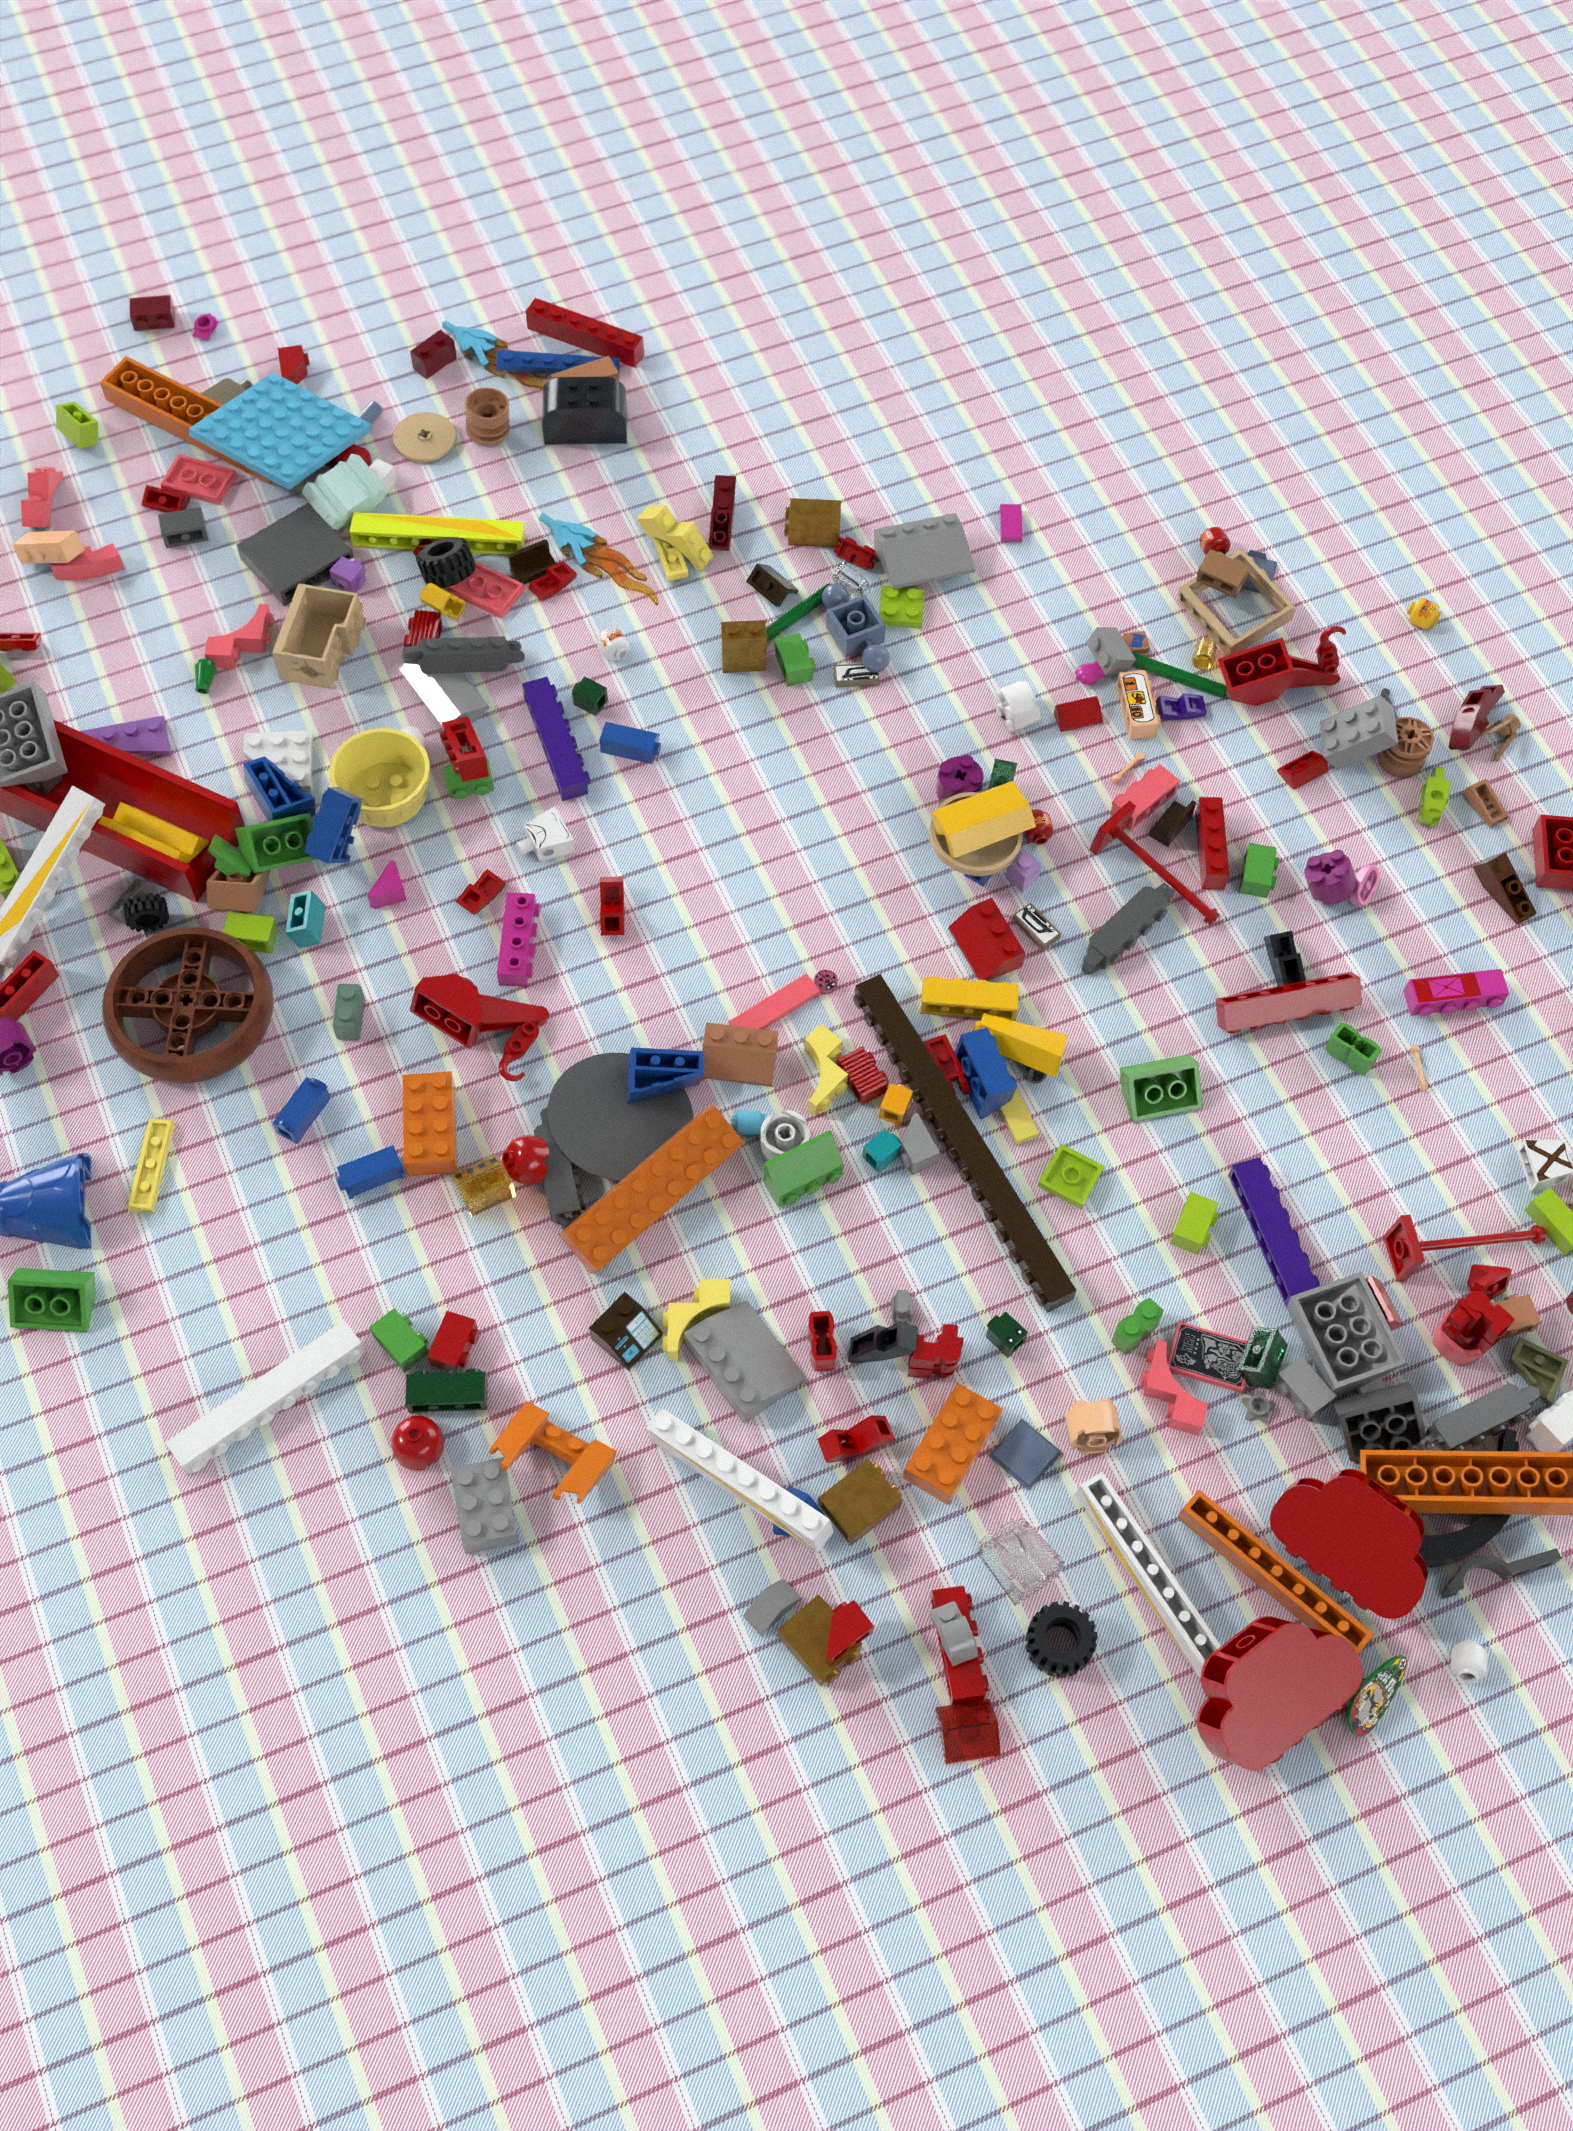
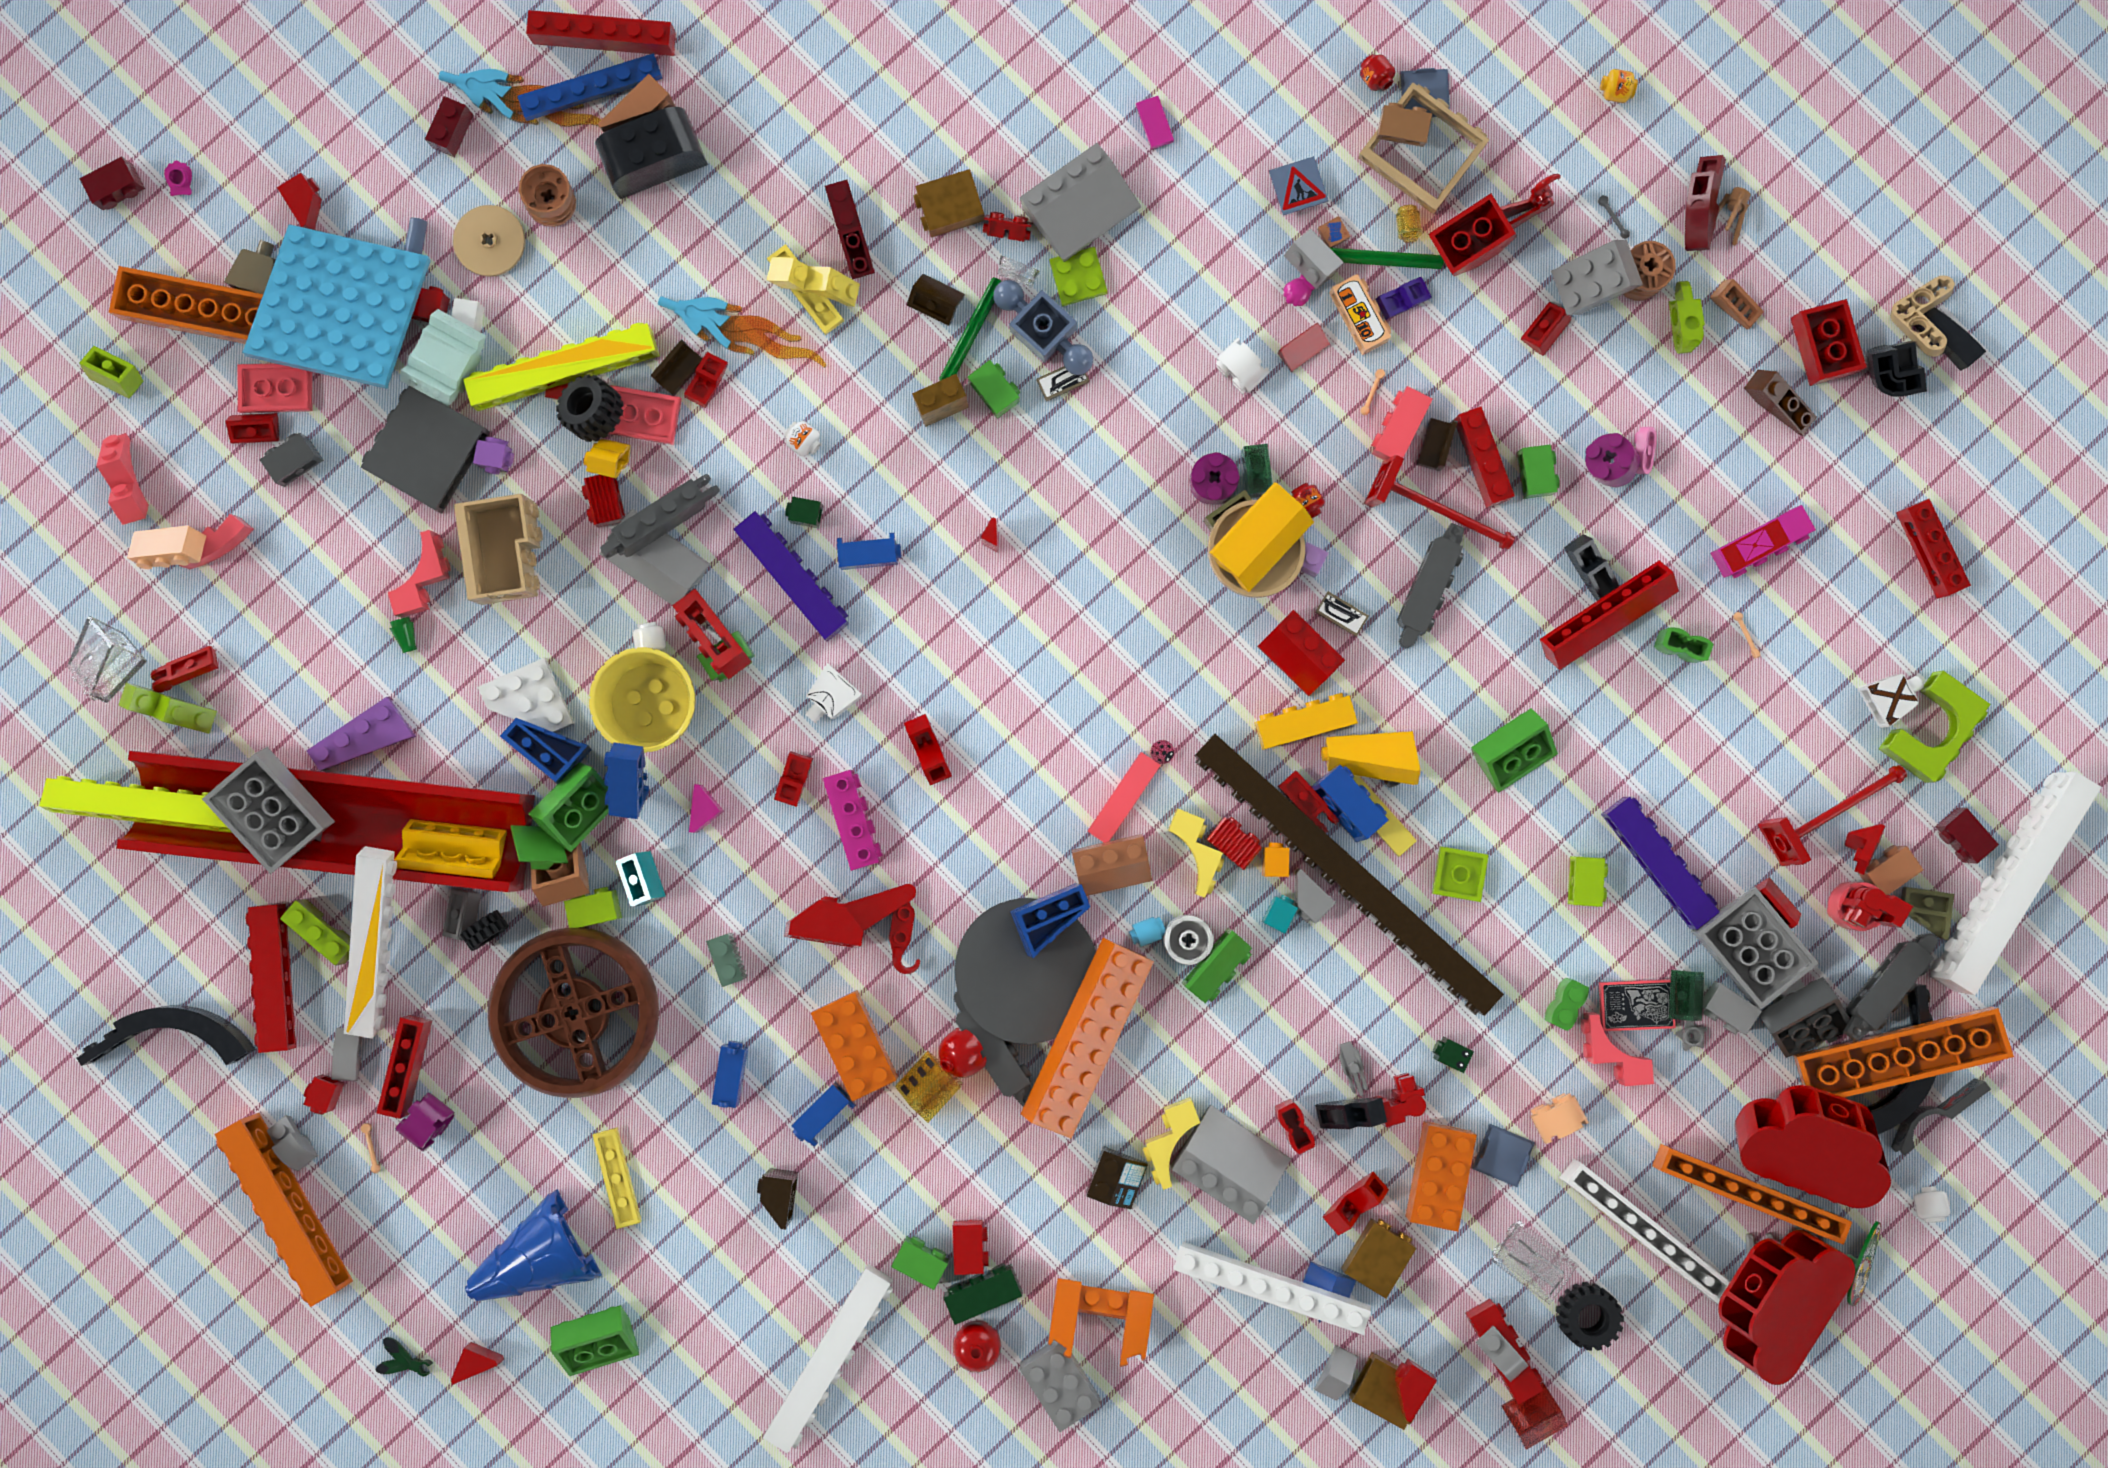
camera: 20 degrees left, 25 degrees up
(297, 1222) = (778, 1194): none -> dark brown slope
(743, 757) = (990, 535): none -> red slope
(1117, 598) = (1298, 186): none -> sand blue piece

